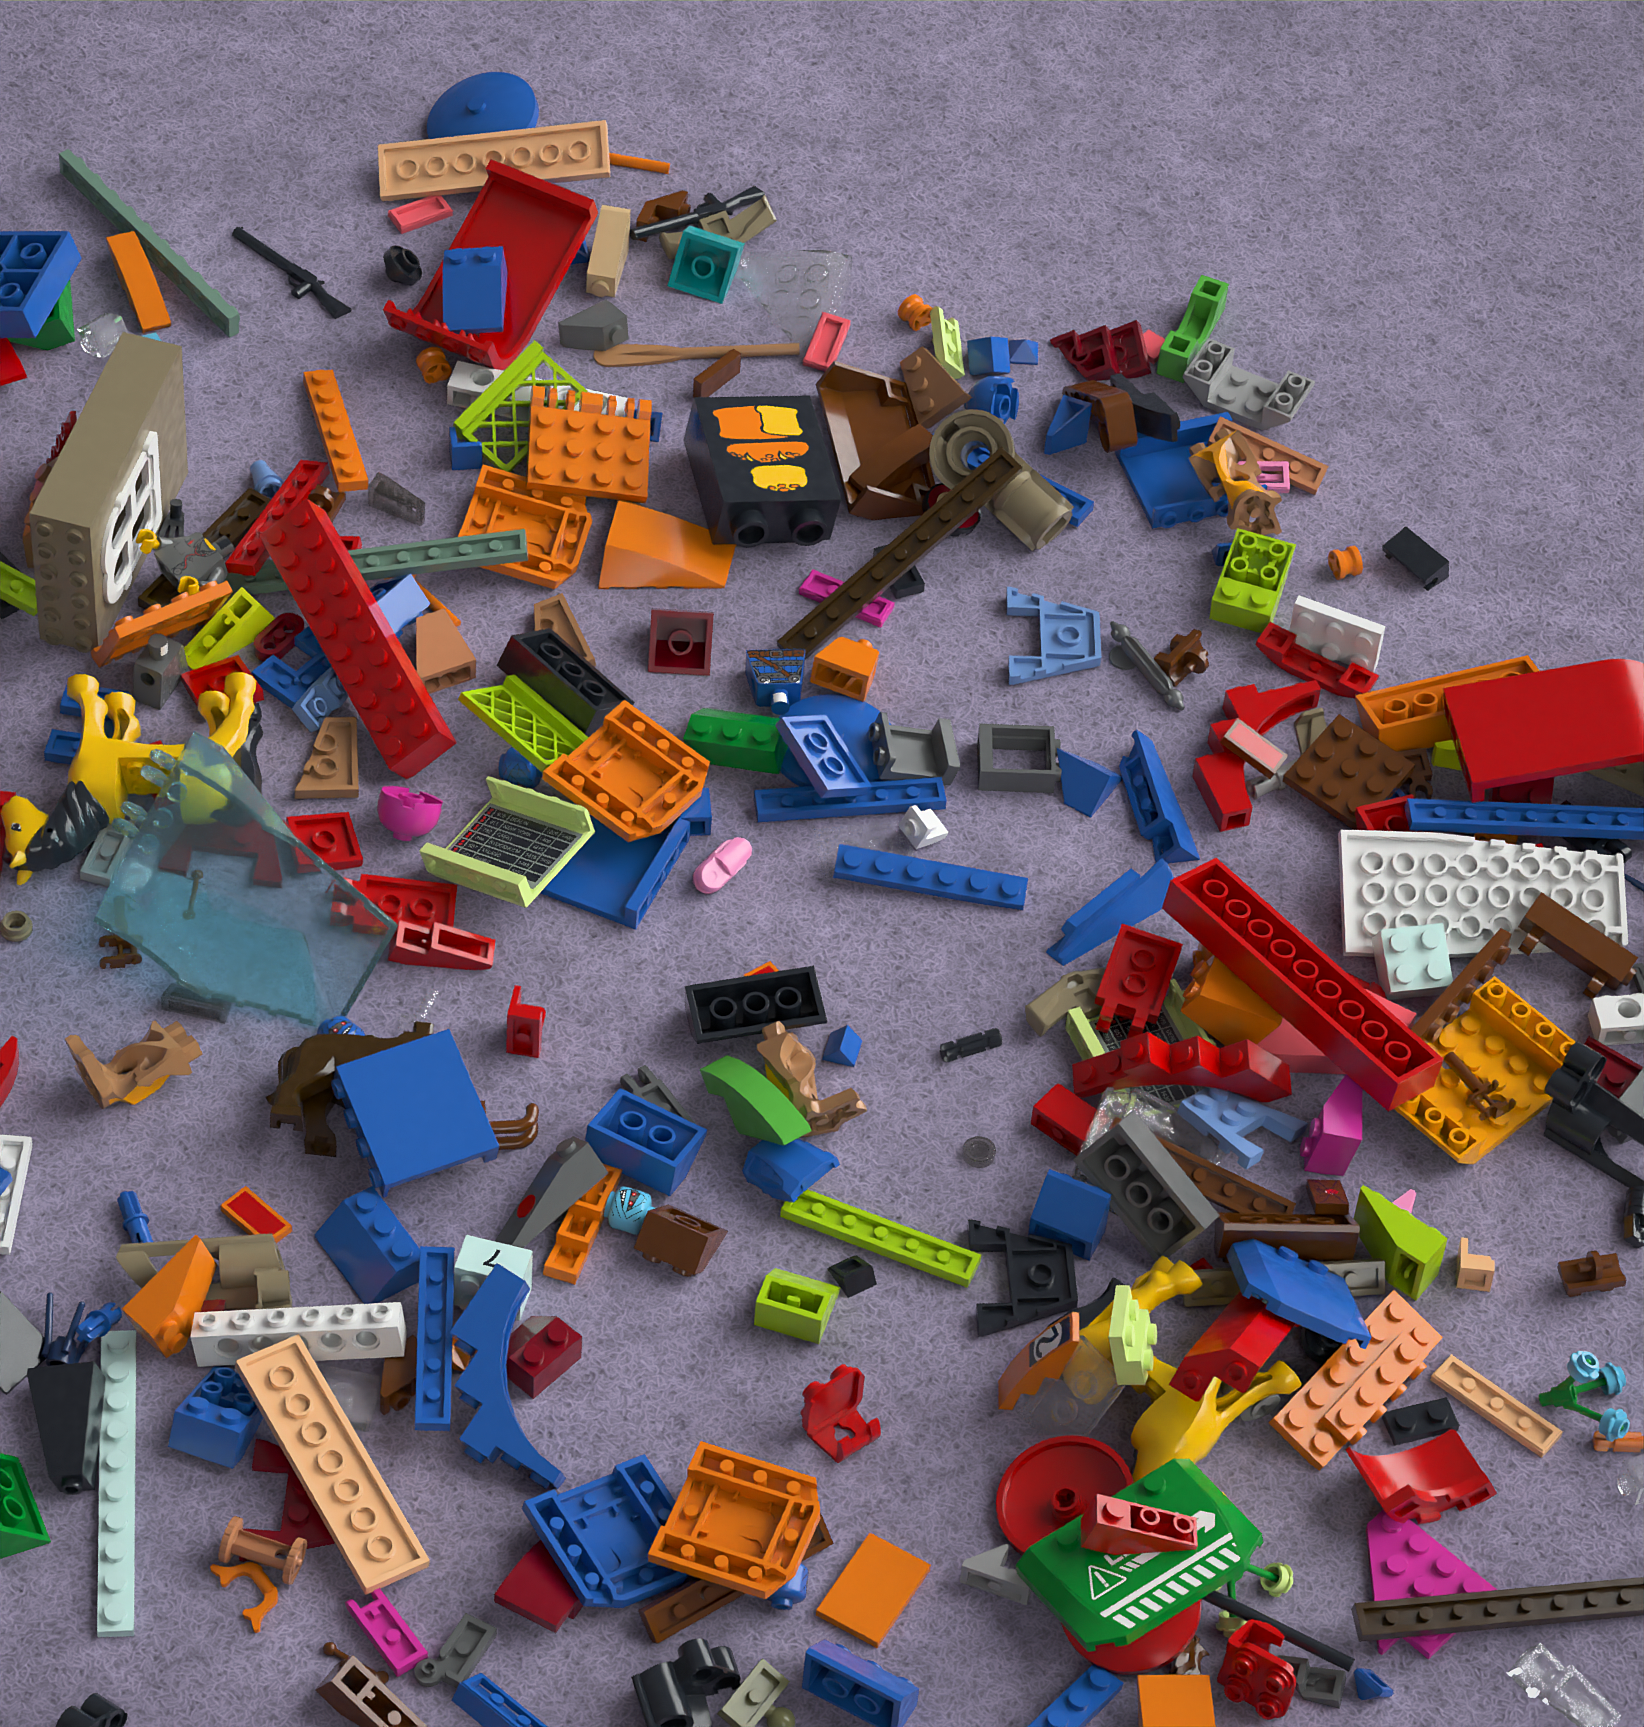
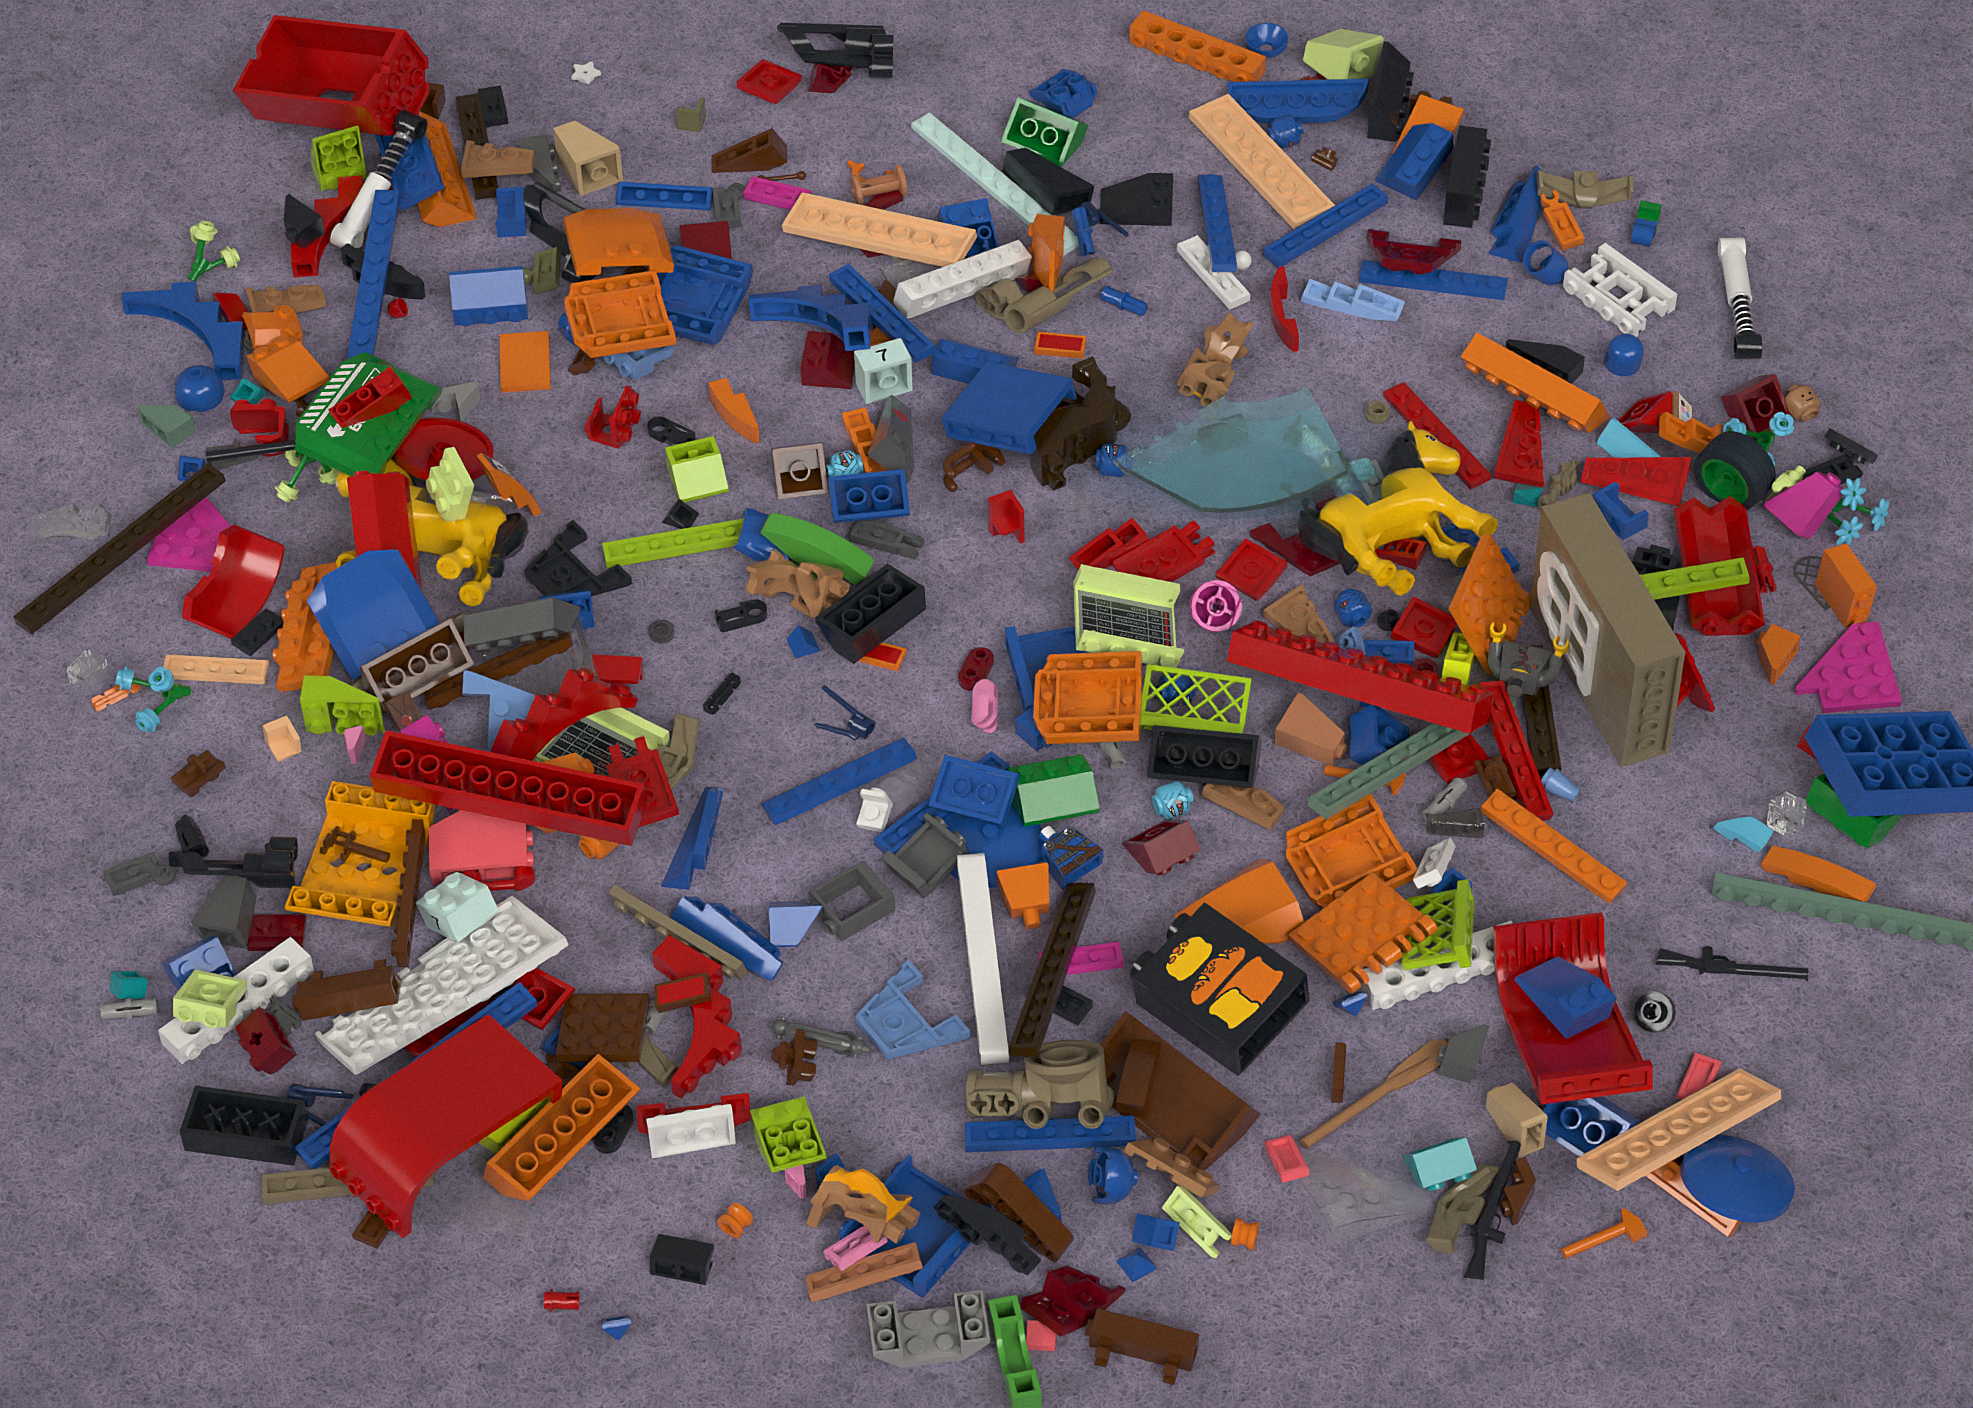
camera: 150 degrees right, 0 degrees up
(174, 520) = (1587, 723): black piece -> none
(276, 739) = (1353, 608): none -> blue head
(383, 528) = (1446, 799): none -> light grey pin
(462, 462) = (1434, 863): none -> white plate
(631, 670) = (1172, 800): none -> medium azure head
(659, 1628) = (617, 239): none -> orange wedge
(688, 1357) = (733, 409): none -> orange slope
(693, 915) = (975, 666): none -> dark red plate
(780, 1380) = (673, 433): none -> black piece
(863, 925) = (859, 723): none -> dark blue plant
(886, 1116) = (739, 616): none -> black piece
(940, 635) = (982, 959): none -> white beam
(1073, 289) = (1142, 1340): none -> reddish brown brick
(1200, 812) = (665, 926): none -> dark tan plate
(1512, 542) = (616, 1326): none -> blue slope
(1547, 592) = (561, 1300): none -> red pin

